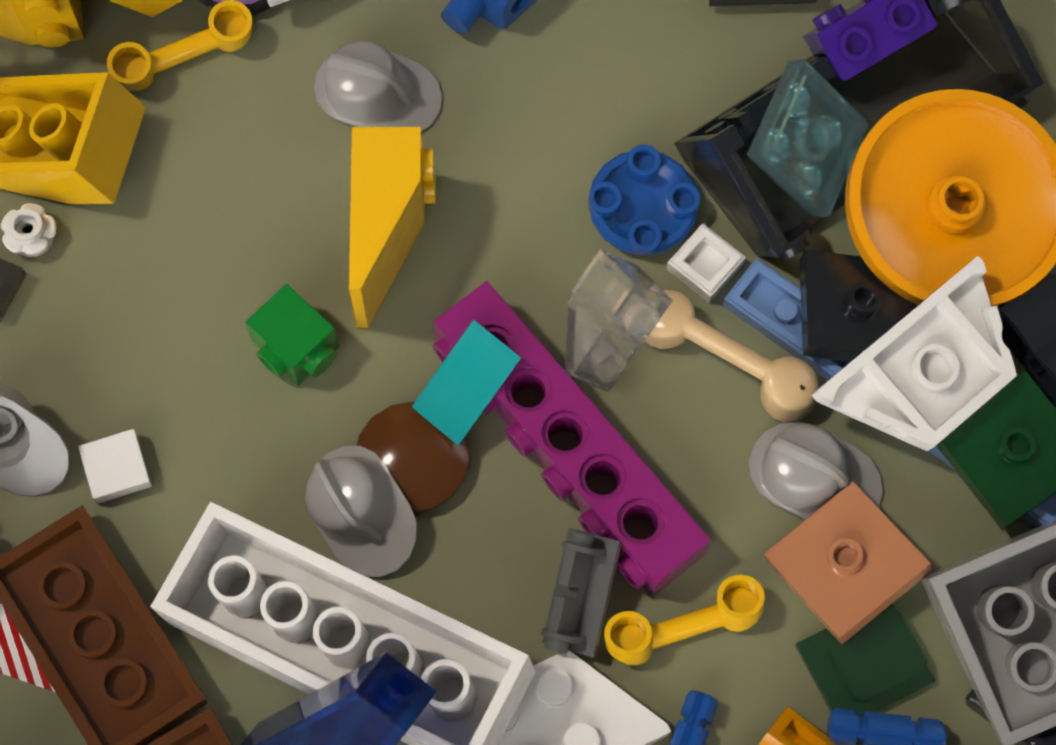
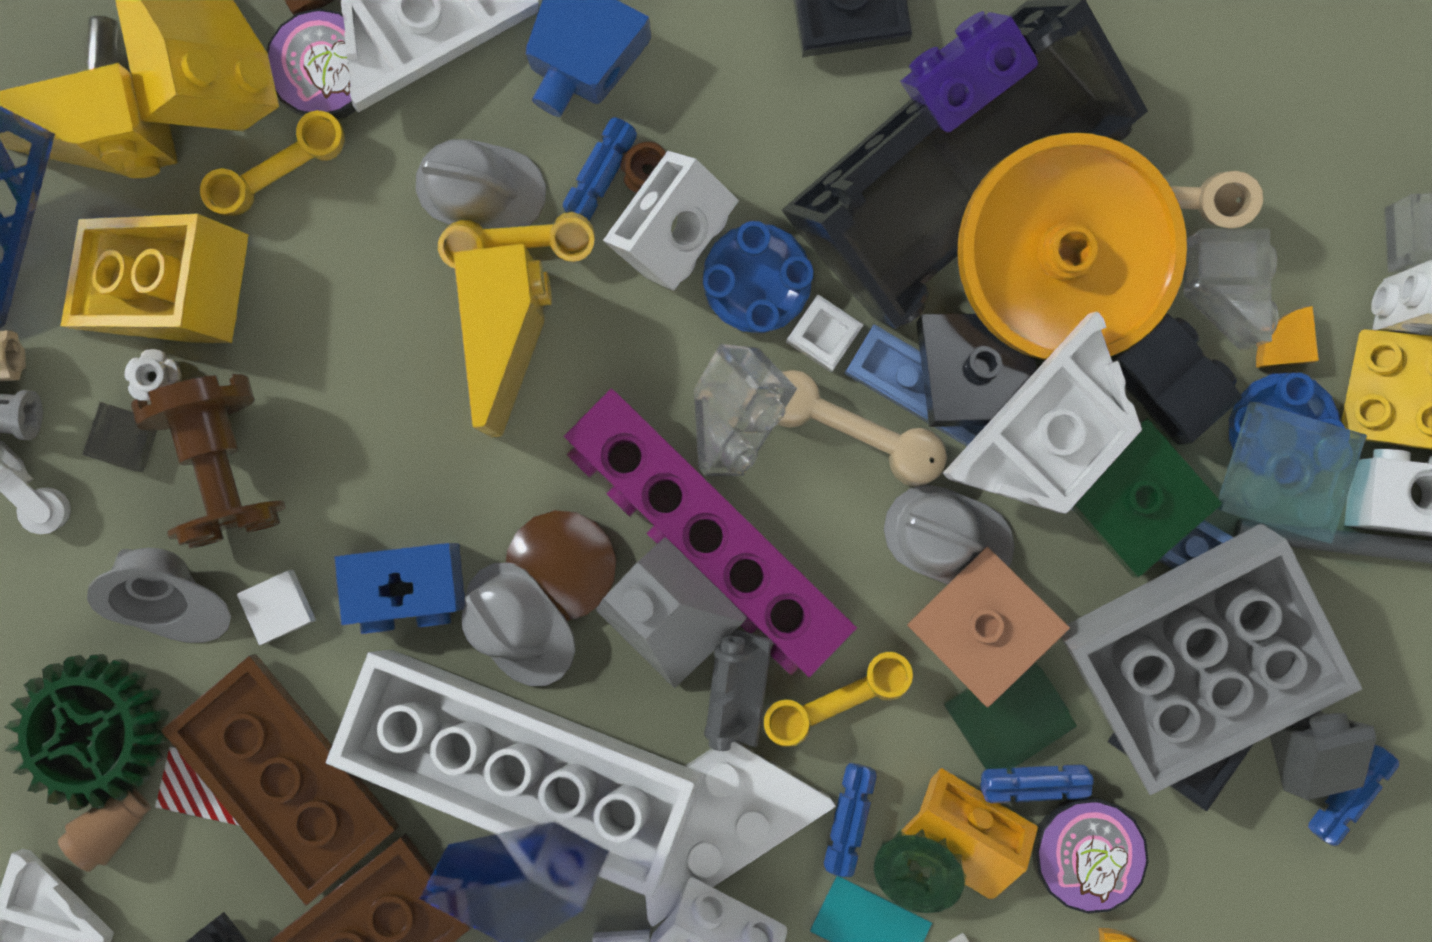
camera: 10 degrees left, 15 degrees up
(71, 260) = (204, 437): none -> reddish brown piece
(220, 441) = (367, 578): none -> blue brick
(292, 337) = (428, 461): green brick -> none
(461, 142) = (569, 237): none -> yellow bar
(466, 382) = (603, 494): teal sticker -> none
(498, 86) = (600, 168): none -> blue axle
(516, 507) = (670, 612): none -> light grey slope
(536, 142) = (643, 230): none -> white brick
(547, 76) = (635, 159): none -> reddish brown plate
(808, 138) = (916, 200): clear light blue plate -> none

